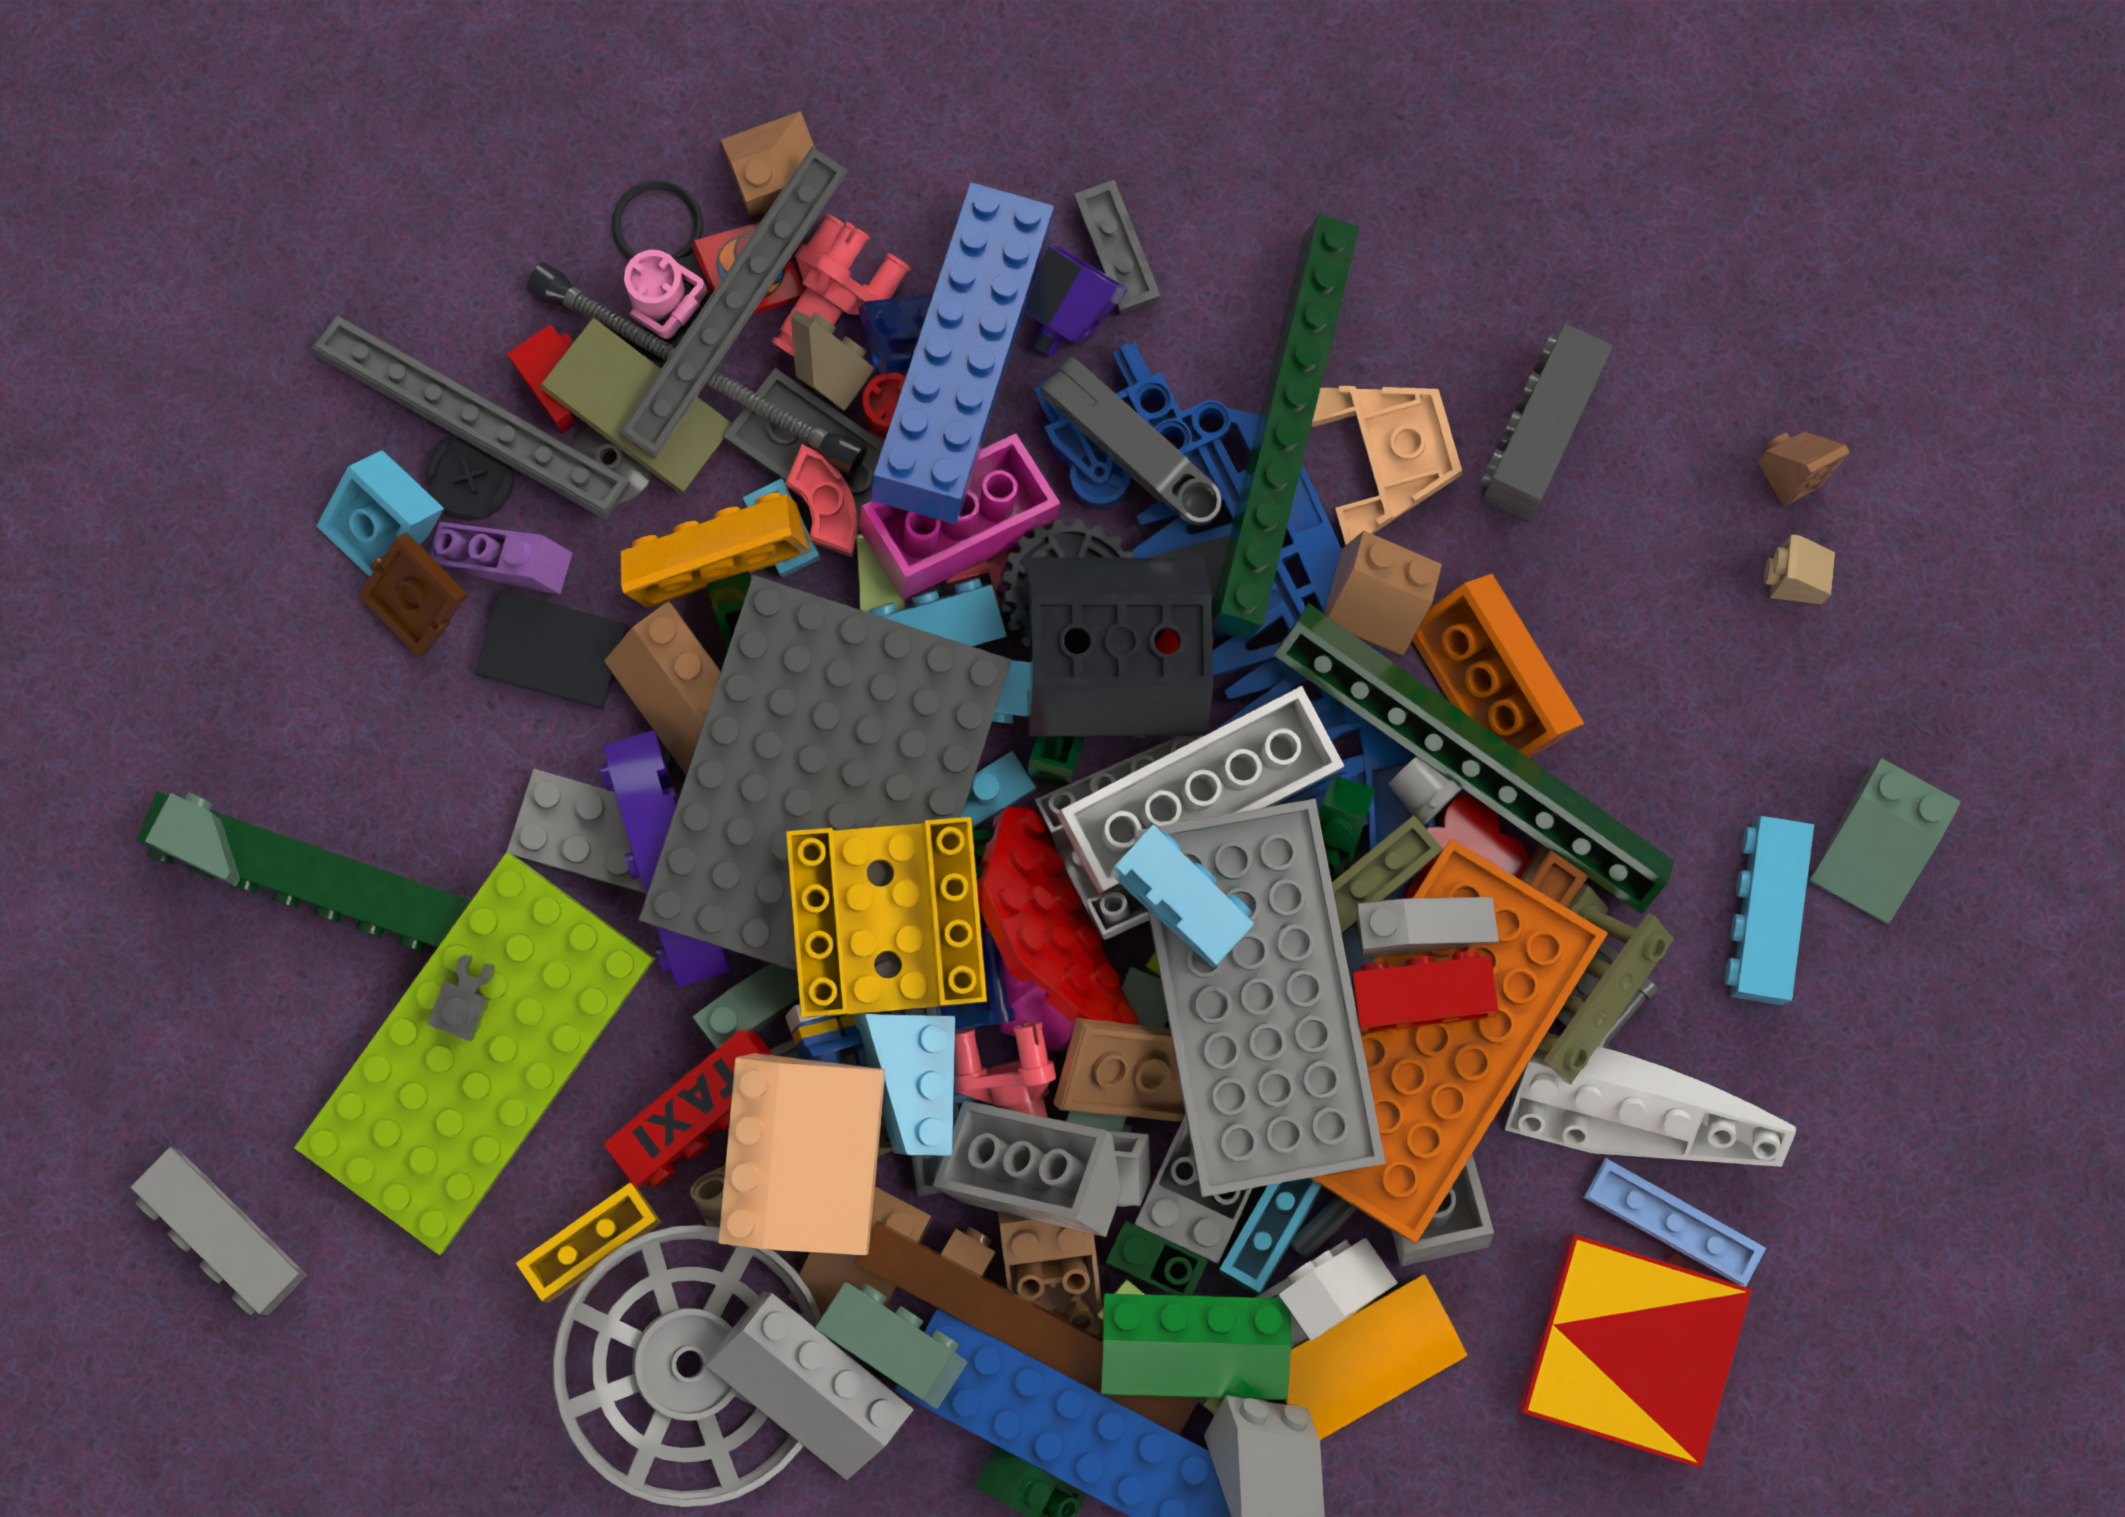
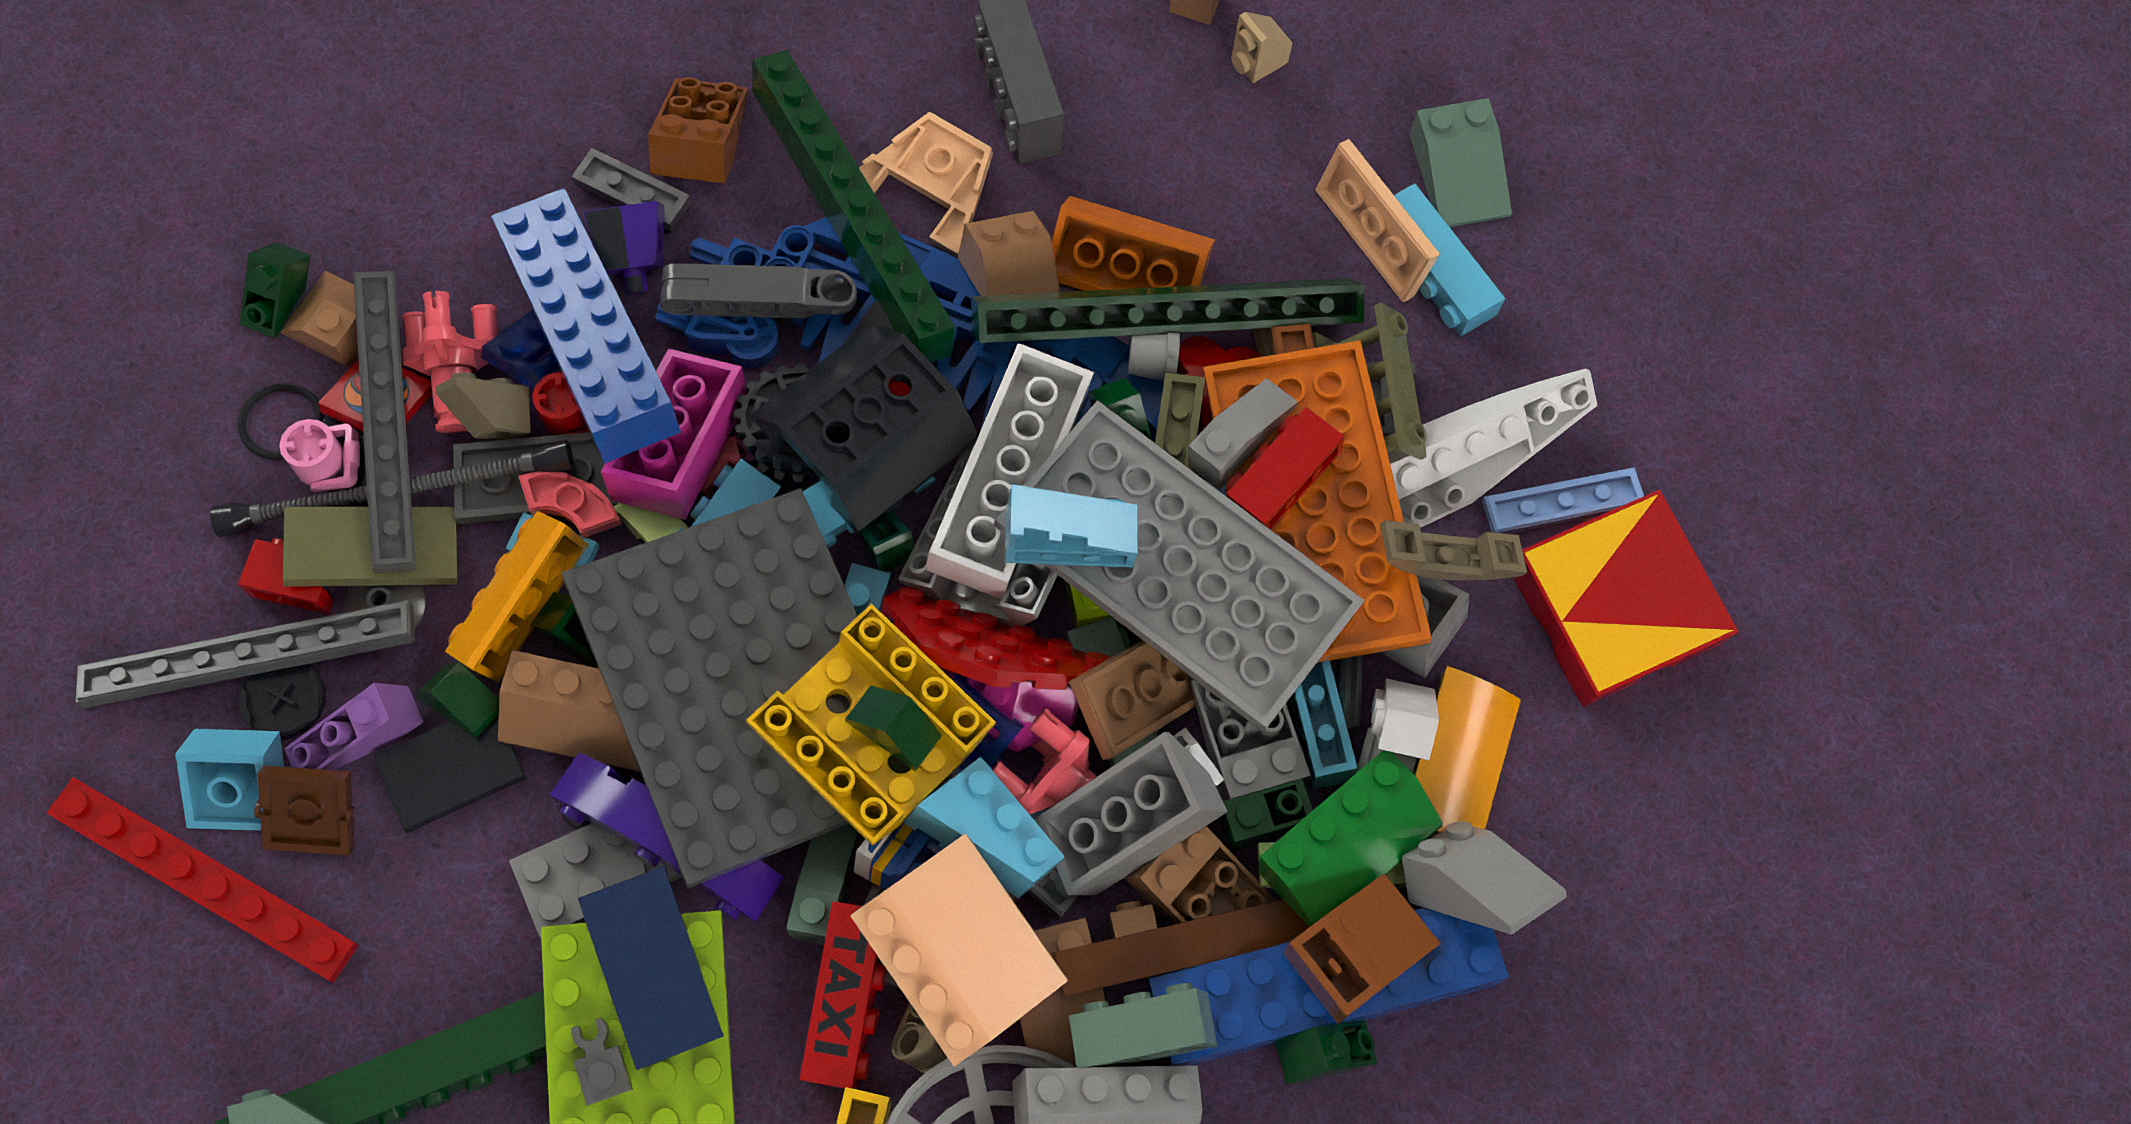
camera: 45 degrees left, 10 degrees down
(295, 580) = (203, 879): none -> red plate
(560, 959) = (650, 967): none -> dark blue tile
(602, 599) = (460, 698): none -> dark green slope
(744, 95) = (272, 287): none -> dark green slope
(903, 933) = (895, 725): none -> dark green slope
(1122, 1437) = (1360, 947): none -> dark orange slope
(1222, 235) = (697, 130): none -> dark orange slope
(1504, 1187) = (1452, 556): none -> dark tan slope
(1743, 830) = (1376, 221): none -> light nougat tile

